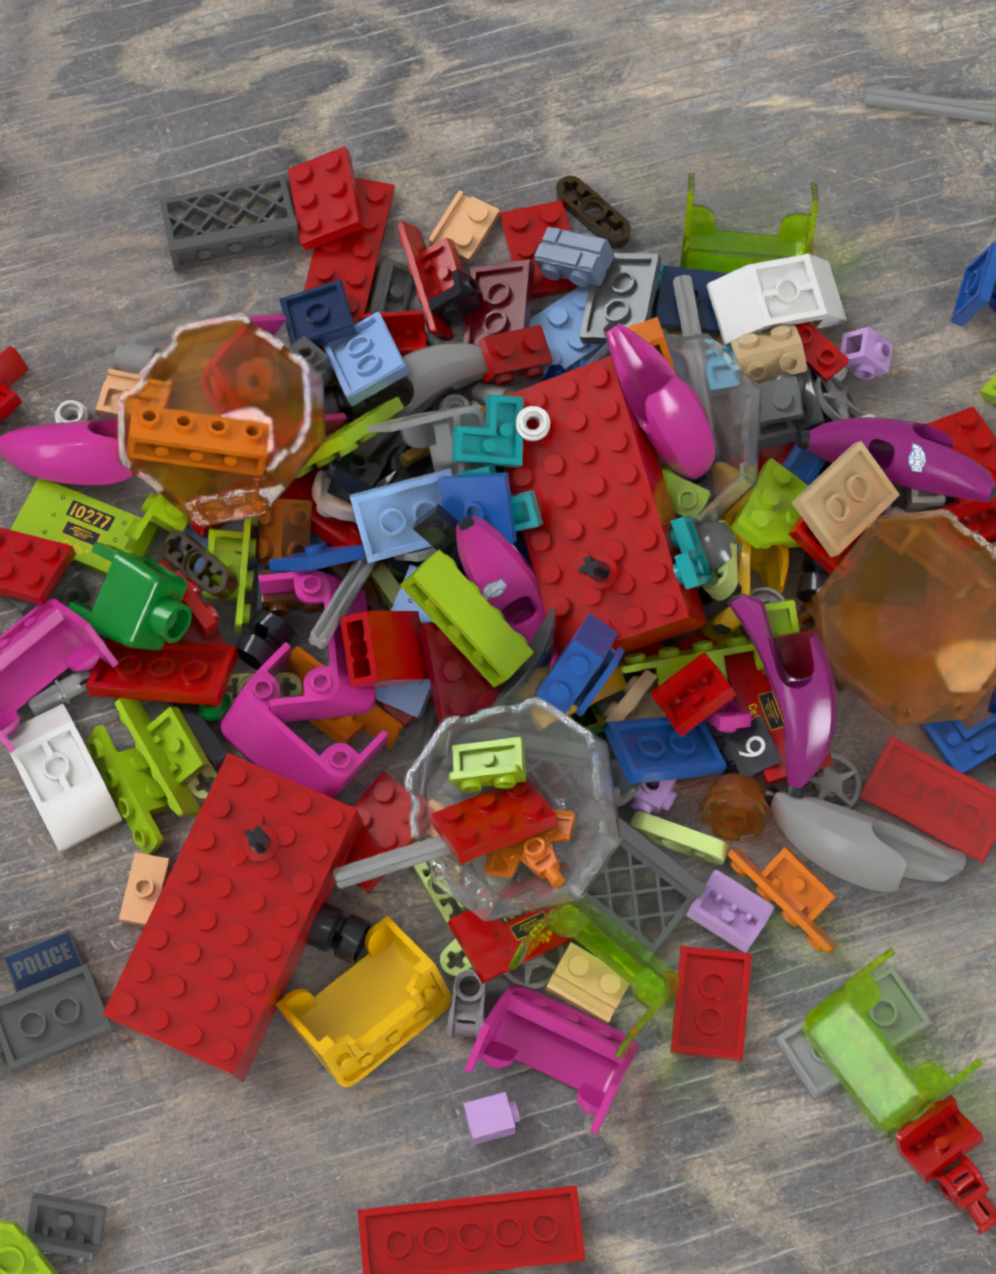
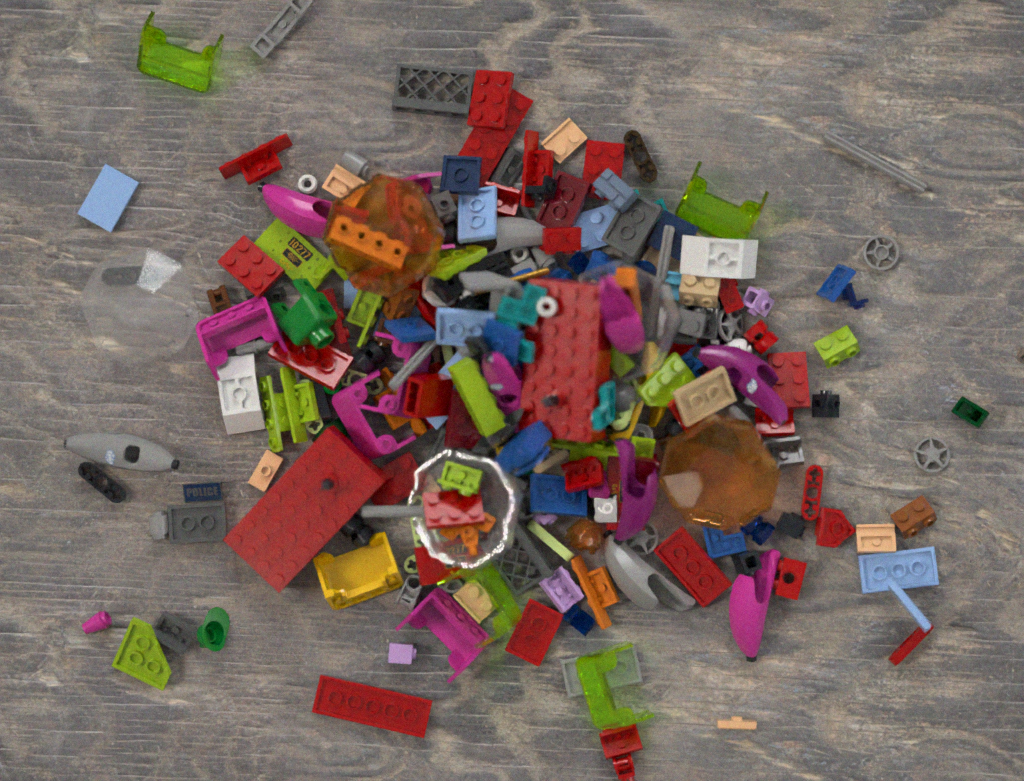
camera: 20 degrees right, 20 degrees up
(136, 1196) = (214, 629): none -> green piece
(187, 563) = (355, 308): dark brown beam -> none
(781, 952) = (579, 619): none -> clear blue bracket
(906, 401) = (765, 341): none -> red wheel

